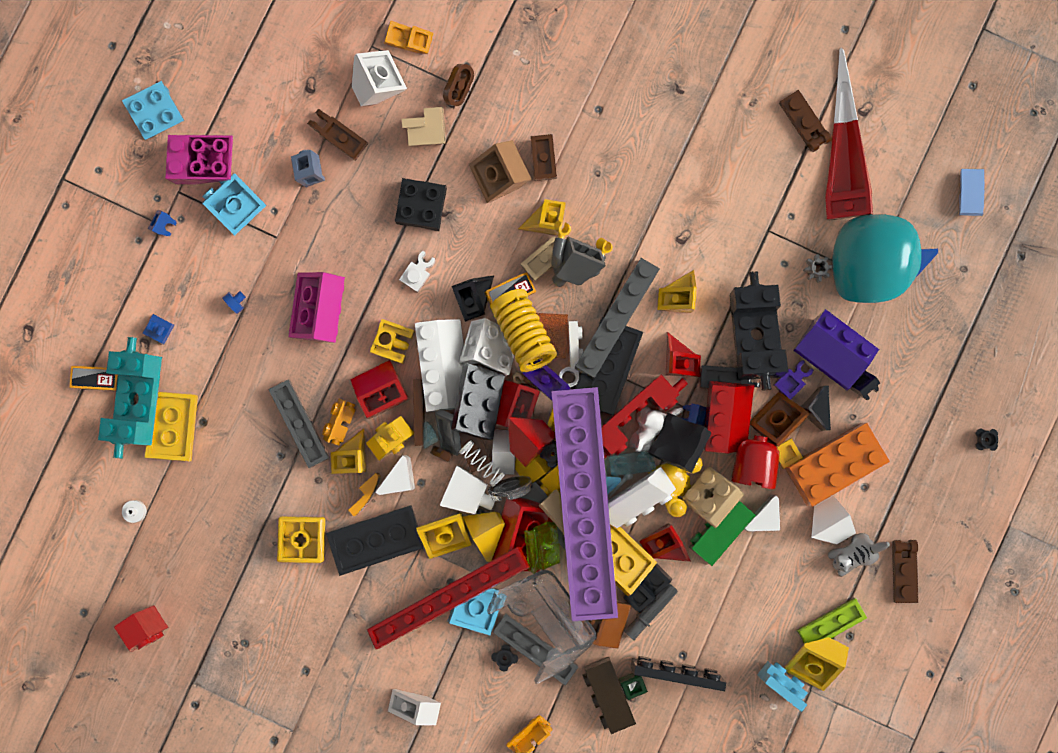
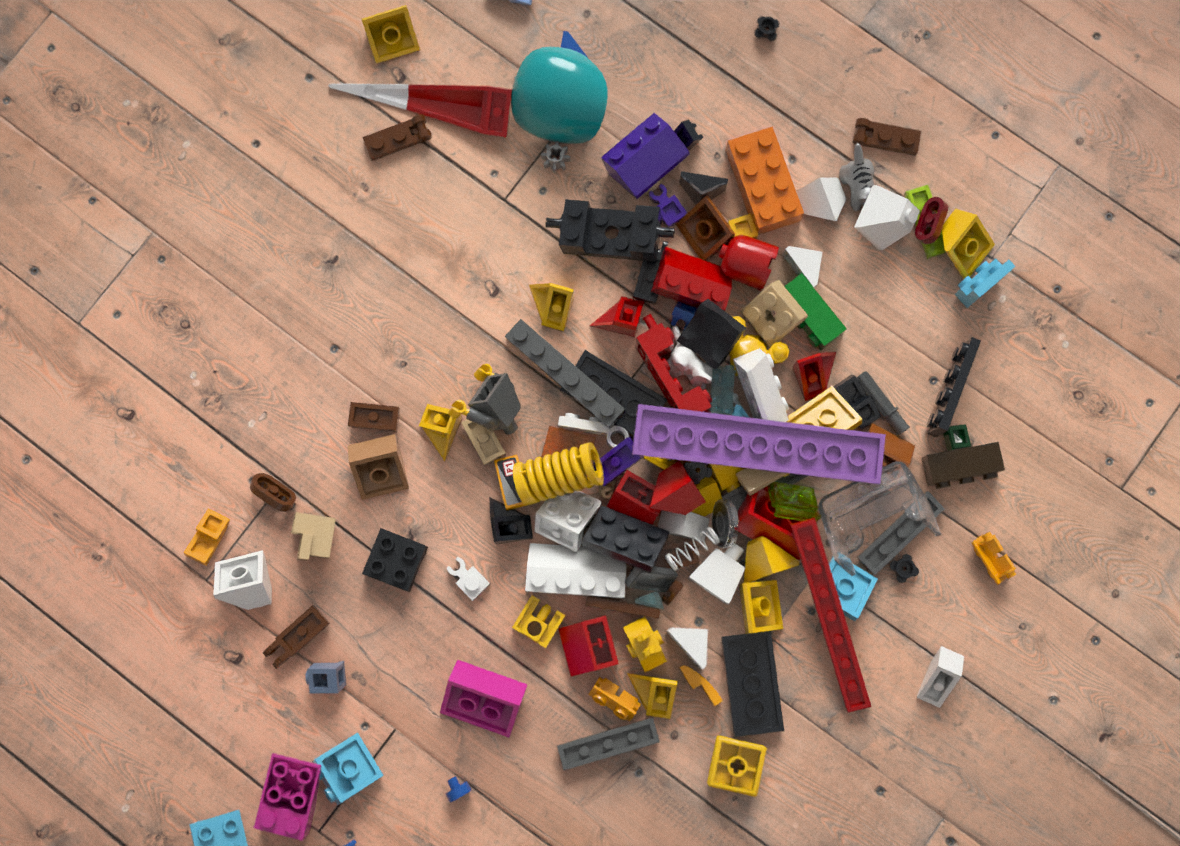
camera: 80 degrees left, 5 degrees down
(825, 583) = (886, 217): none -> white slope
(830, 625) = (931, 221): none -> dark red plate
(902, 92) = (390, 34): none -> yellow slope

